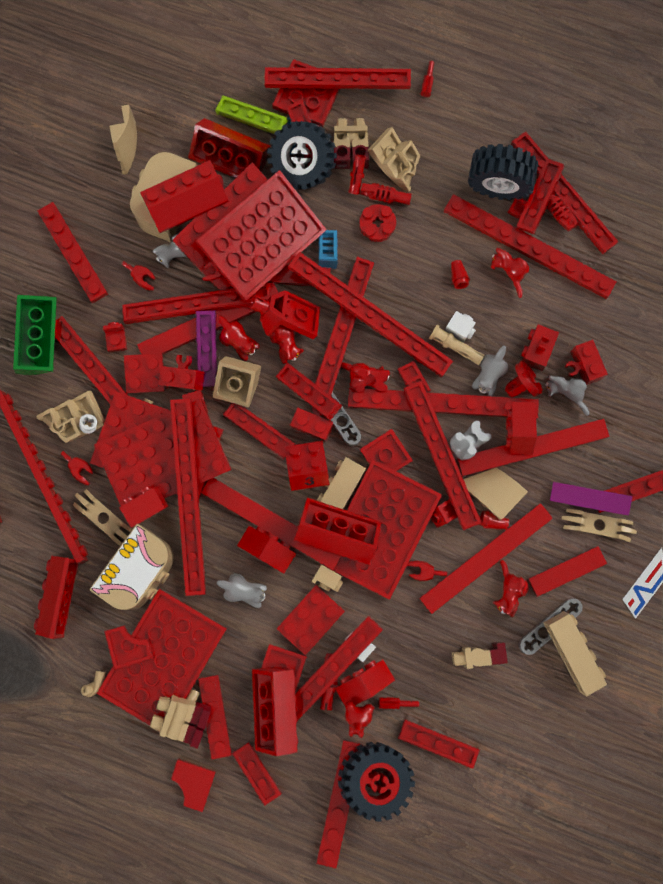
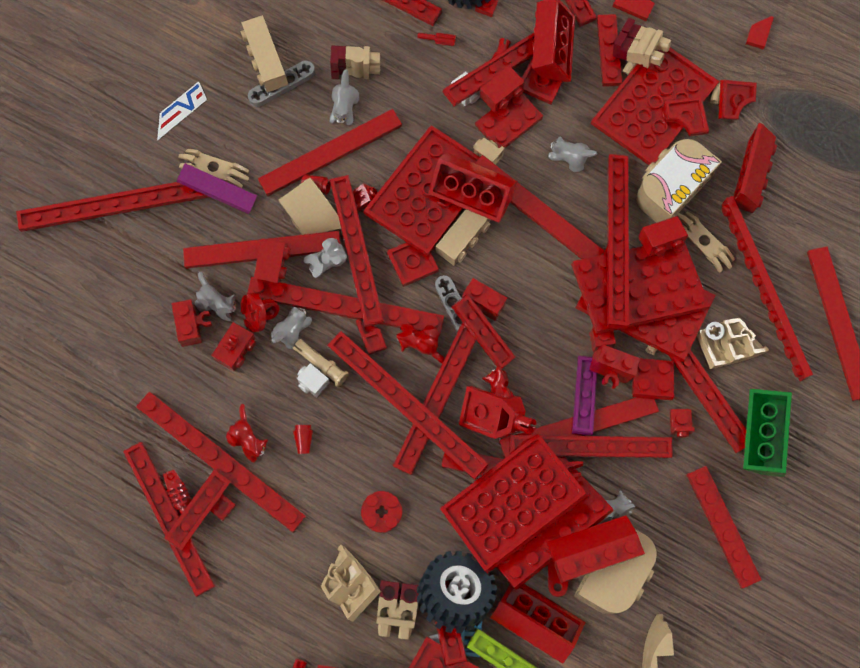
camera: 175 degrees left, 5 degrees down
(56, 760) = (759, 33): none -> red tile
(75, 466) = (729, 295): red hand -> none
(80, 678) = (734, 97): none -> red tile
(138, 273) = (652, 490): red hand -> none
(235, 336) = (551, 402): red animal -> none
(236, 381) = (556, 355): tan slope -> none
(258, 429) = (538, 306): red tile -> none
(267, 548) = (546, 183): red brick -> none
(306, 465) = (495, 256): red brick -> none
(321, 645) = (502, 89): none -> red brick
(328, 260) = (441, 472): dark azure slope -> none
(357, 174) = (394, 572): red pin -> none
(358, 718) = (476, 21): red animal -> none
(365, 682) = (465, 51): red brick -> none
(385, 193) = (367, 543): red hinge -> none
(427, 571) = (390, 148): red hand -> none
(482, 615) = (344, 98): none -> light grey animal
(503, 172) = (235, 534): black wheel -> none
(513, 588) = (310, 117): red animal -> none
(567, 571) = (254, 129): red tile -> none

